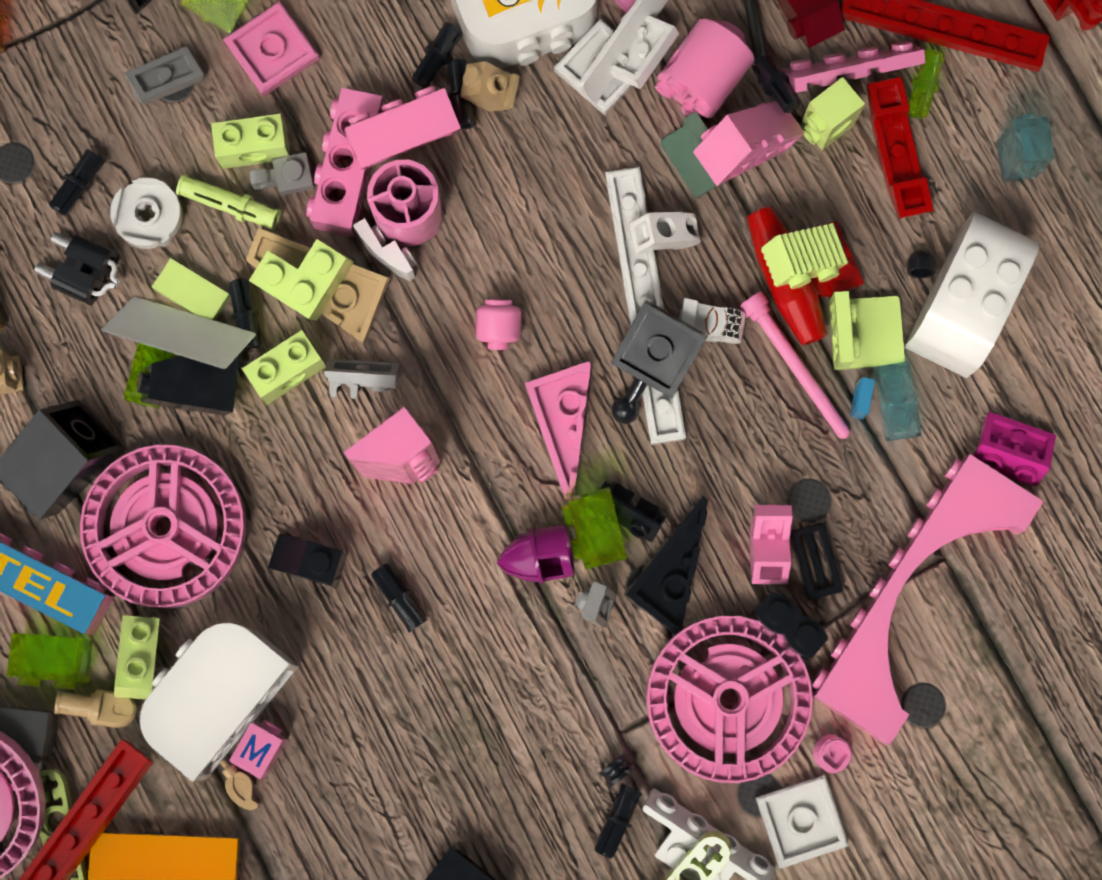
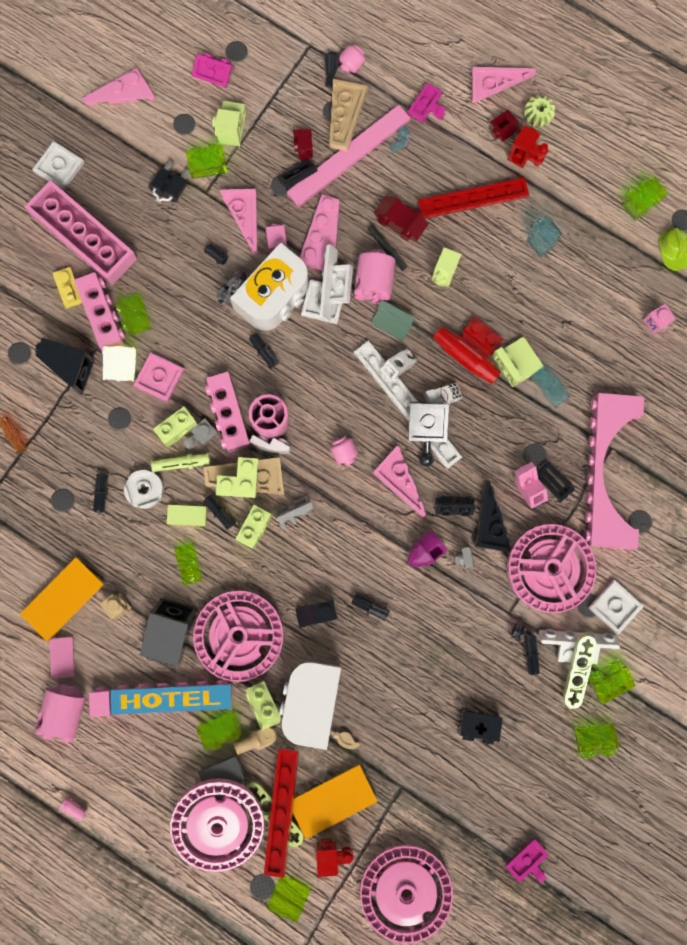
camera: 35 degrees left, 0 degrees up
(82, 270) = (128, 533): black piece -> none
(164, 76) = (115, 418): light grey plate -> none
(179, 332) = (194, 538): white sticker -> none
(189, 385) = (215, 557): black slope -> none
(259, 748) = (345, 716): bright pink brick -> none
(395, 452) = (336, 537): bright pink slope -> none
(401, 127) = (248, 381): bright pink wedge -> none
(437, 54) = (241, 337): black axle -> none
(489, 87) = (276, 339): tan brick -> none
(596, 528) = (445, 522): clear neon green bracket -> none
(746, 140) = (414, 300): bright pink wedge -> none
(757, 309) = (462, 378): bright pink piece -> none
(775, 83) = (412, 266): black axle -> none
(782, 617) = (555, 516): black brick -> none
(805, 255) = (472, 340): yellowish green brick -> none
(825, 73) = (432, 248): bright pink wing -> none
(832, 753) = (612, 567): bright pink tile -> none
(862, 398) = (533, 393): dark azure tile -> none
(897, 149) = (484, 268): red slope -> none
(921, 264) = (525, 316): black hinge -> none
(925, 84) = (480, 230): clear neon green axle -> none
(972, 295) = (559, 317): white brick -> none
(1015, 449) = (616, 379): dark pink bracket -> none

